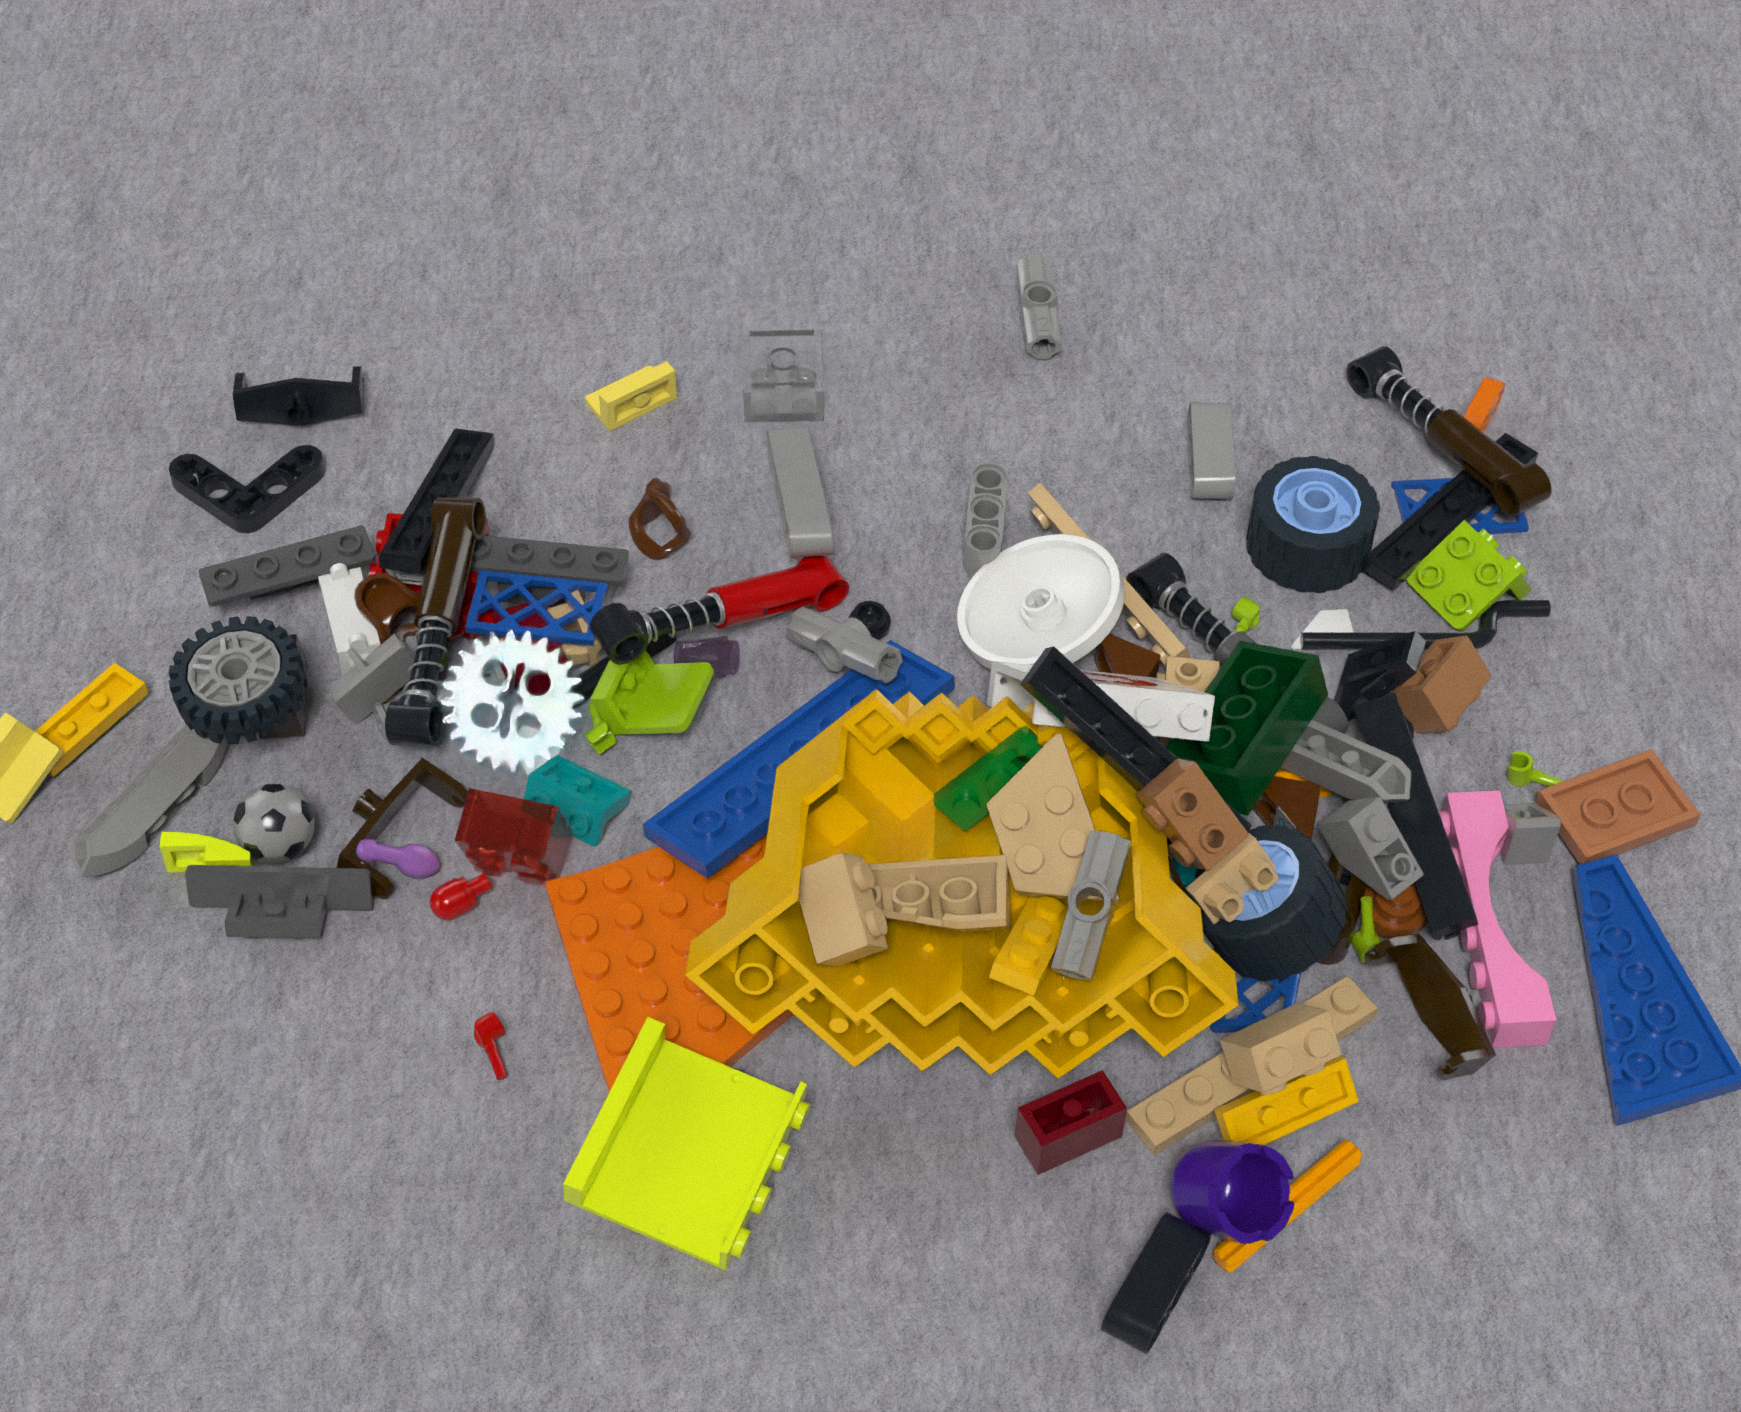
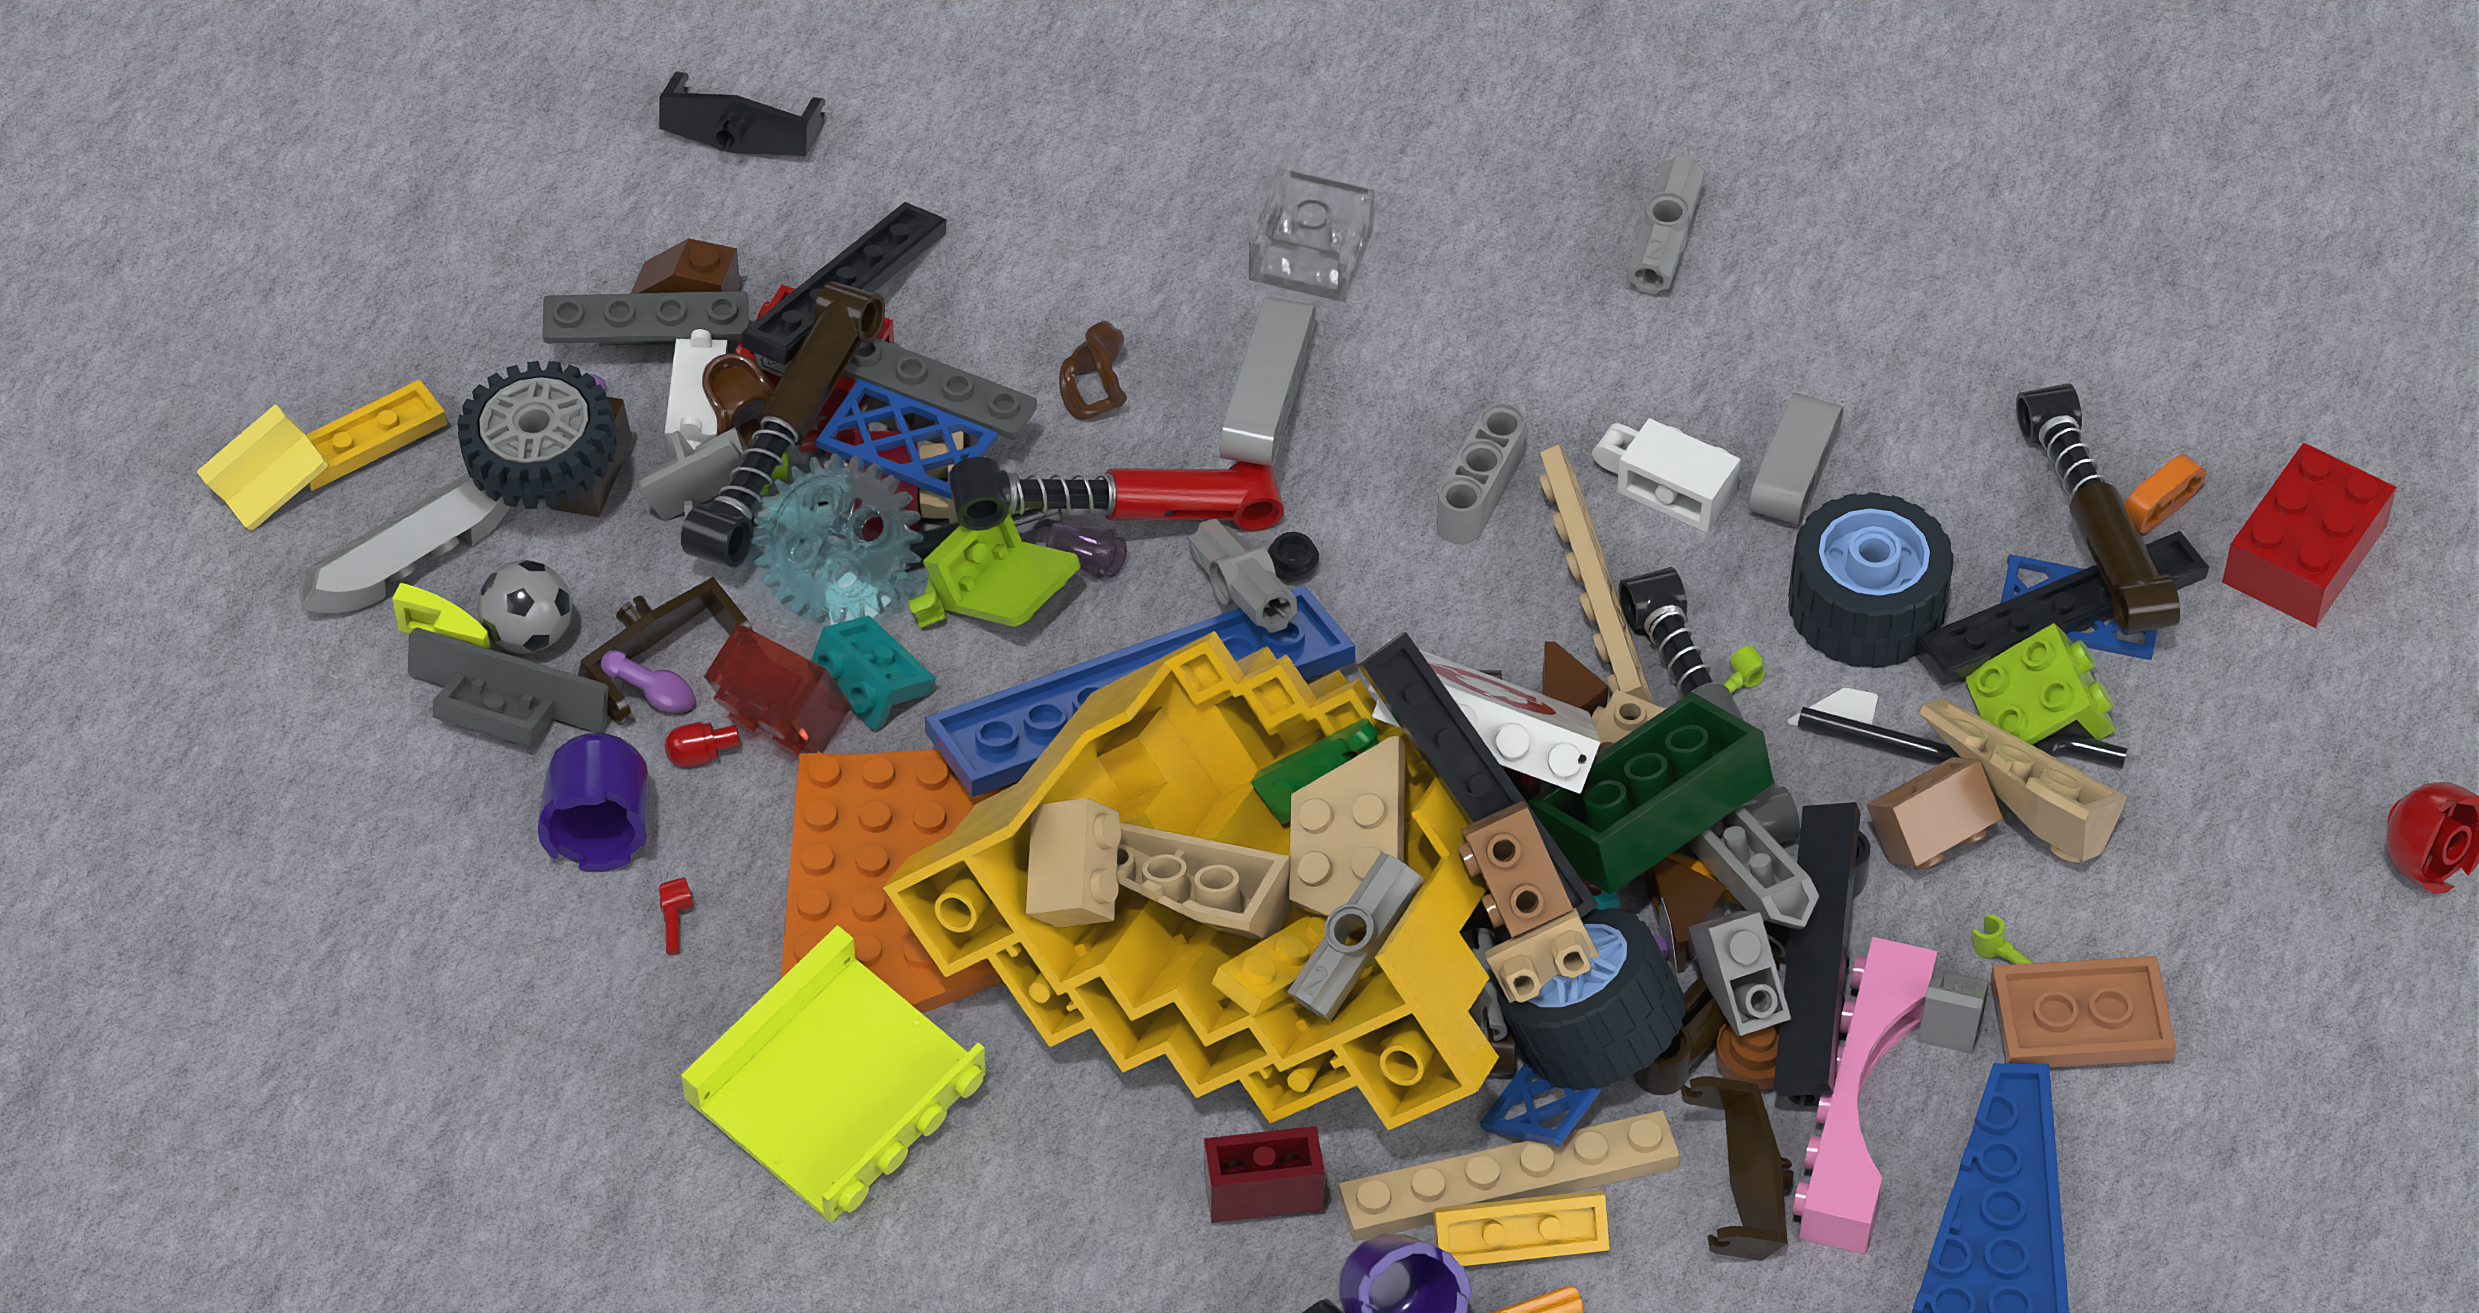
camera: 20 degrees right, 0 degrees up
(243, 498) = (632, 224): black beam -> none
(305, 519) = (690, 268): none -> reddish brown slope
(395, 969) = (595, 802): none -> dark purple cylinder
(633, 395) = (1130, 214): light yellow panel -> none
(1040, 597) = (1496, 587): white dish -> none
(1123, 483) = (1670, 471): none -> white brick
(1281, 1048) = (1531, 1161): tan brick -> none
(1367, 936) = (1708, 1062): lime hand -> none
(1378, 670) = (1866, 773): black wing -> none
(1519, 649) = (2044, 793): none -> tan wedge
(1599, 412) = (2309, 534): none -> red brick

